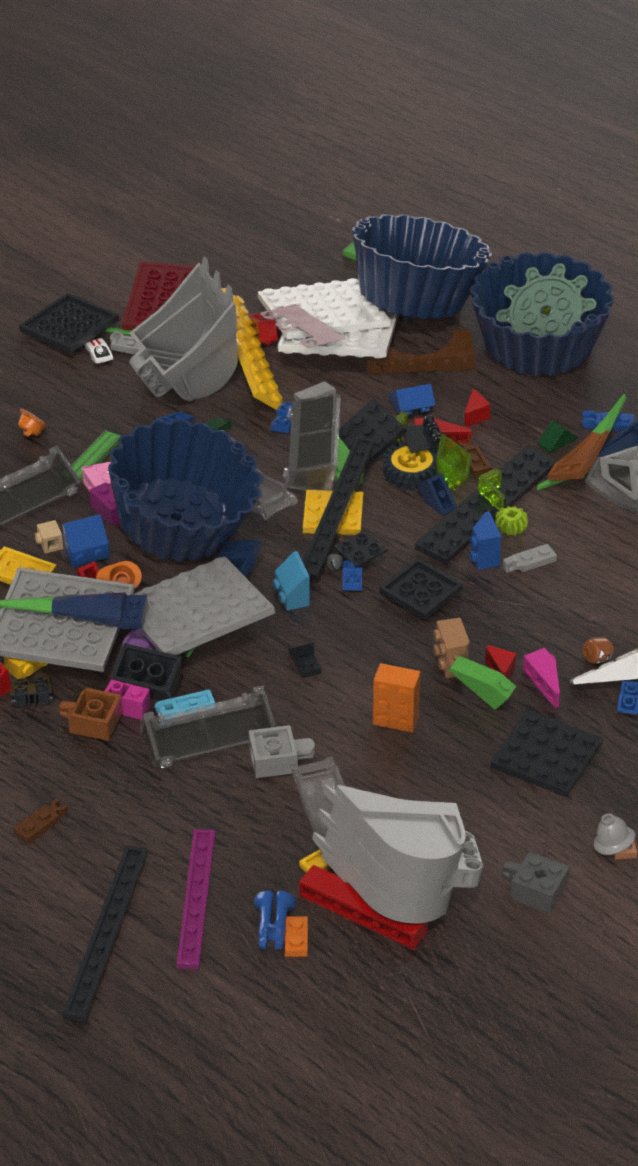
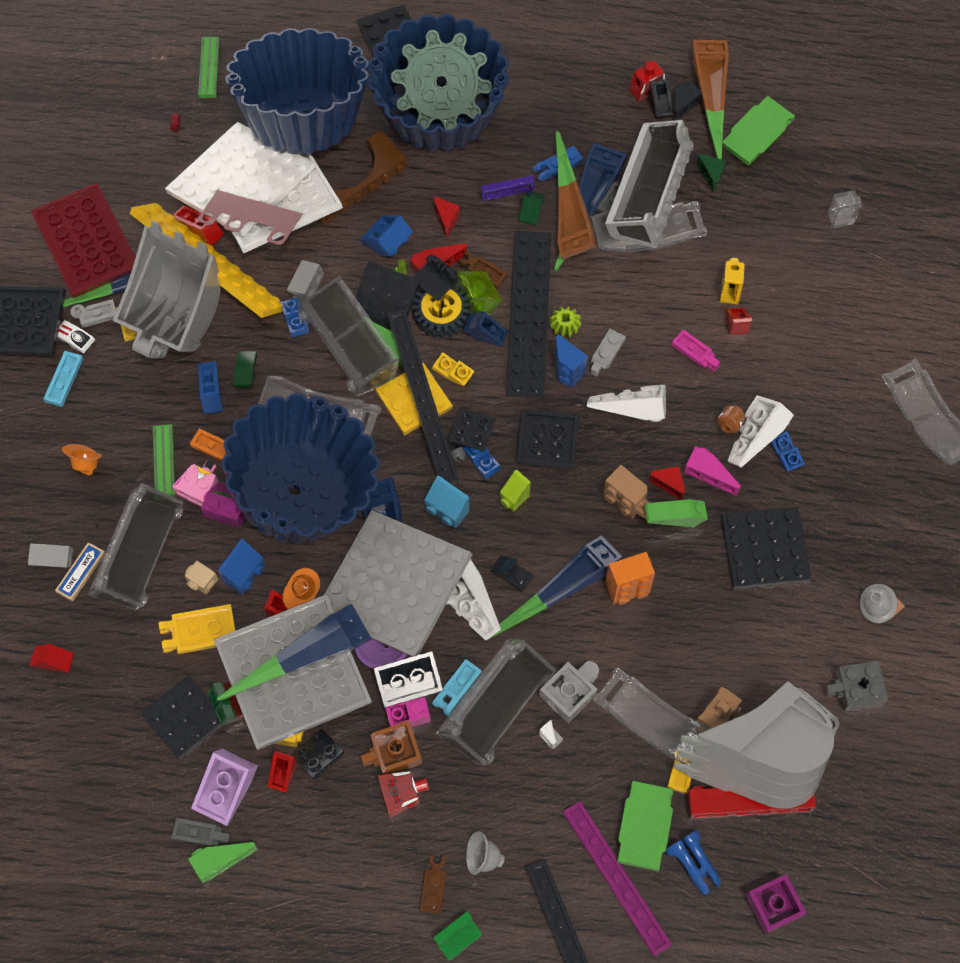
camera: 35 degrees left, 25 degrees up
(27, 859) = (457, 936): none -> green panel
(65, 371) = (63, 378): none -> medium azure plate
(72, 745) = (401, 791): none -> red torso
(100, 819) = (482, 854): none -> light grey hat
(232, 774) = (550, 735): none -> white slope
(251, 649) = (473, 603): none -> white wedge
(252, 873) = (645, 826): none -> bright green piece
(296, 936) = (722, 862): orange plate -> none
(307, 258) = (175, 122): none -> dark red tile
(313, 981) = (775, 904): none -> magenta brick
(353, 686) = (584, 569): none -> dark blue plate
(357, 603) = (515, 491): none -> lime slope
(383, 508) = (452, 370): none -> yellow slope
(488, 487) = (525, 302): clear neon green bracket -> none
(526, 603) = (643, 404): none -> white wedge
(545, 414) = (507, 188): none -> dark purple tile
(611, 593) = (695, 350): none -> dark pink hinge

